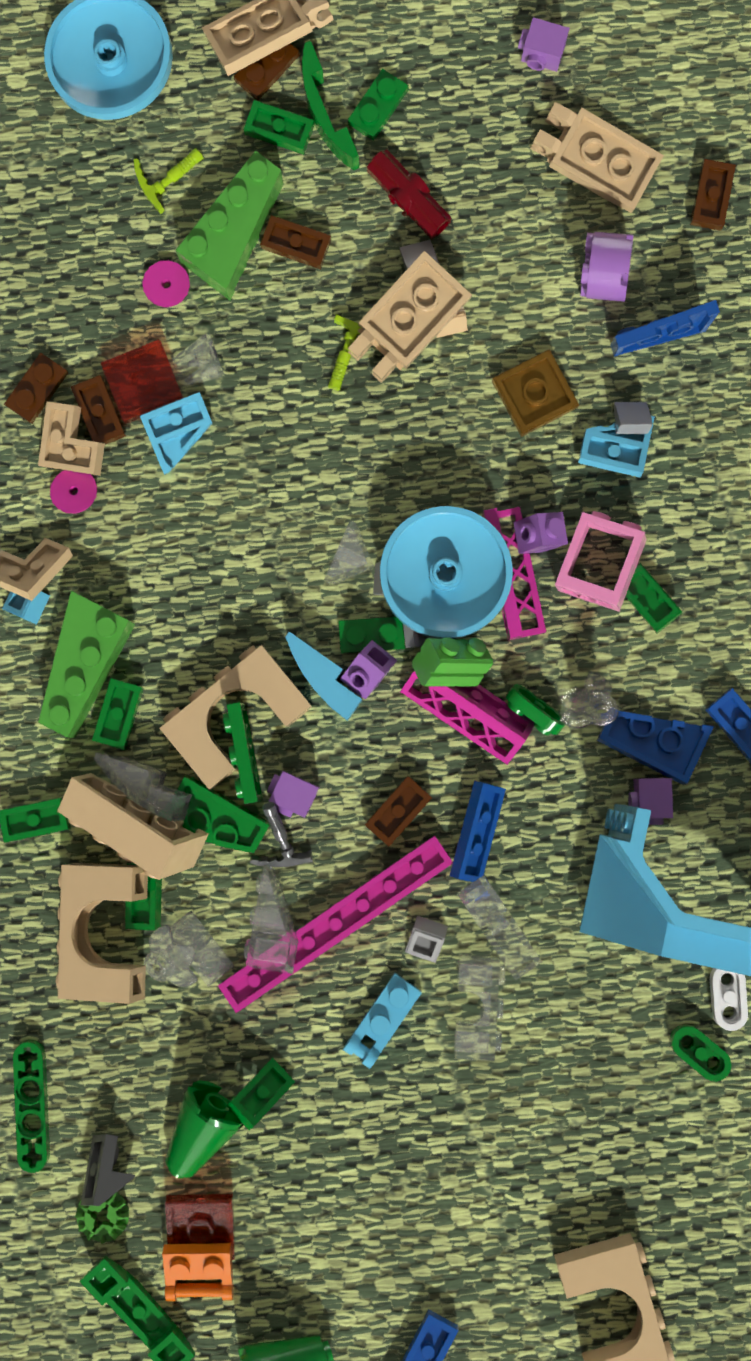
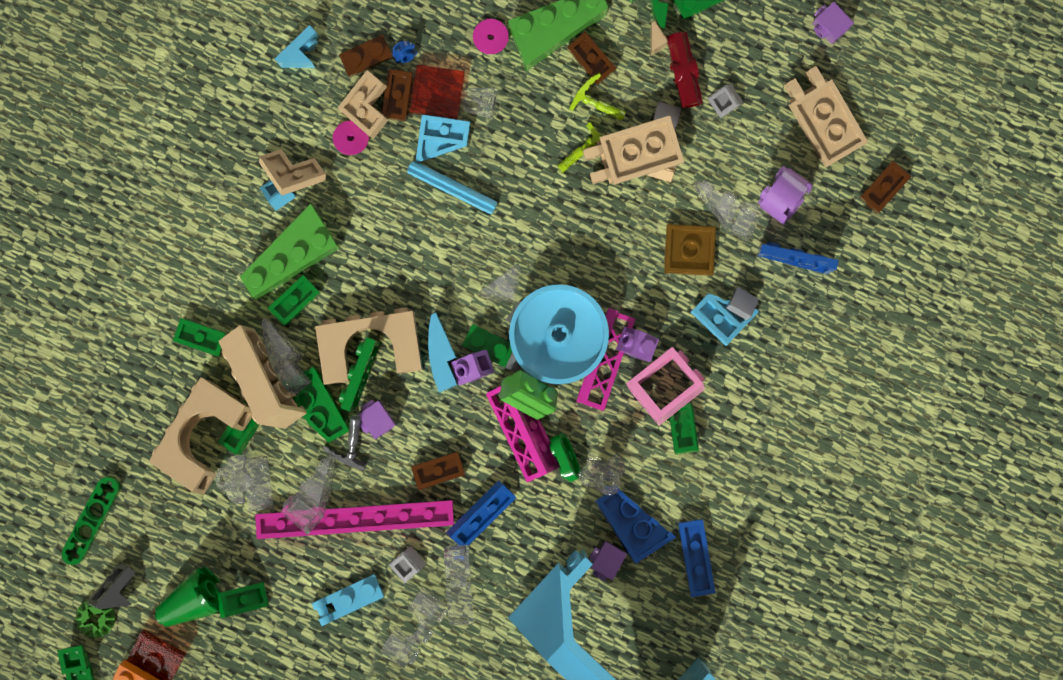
camera: 30 degrees right, 0 degrees up
(77, 357) = (404, 52): none -> blue plate
(223, 479) = (451, 187): none -> medium azure axle
(336, 289) = (600, 105): none -> lime piece
(357, 175) = (657, 38): none -> tan slope
(474, 202) = (725, 100): none -> light grey slope
(558, 324) = (731, 214): none -> clear slope

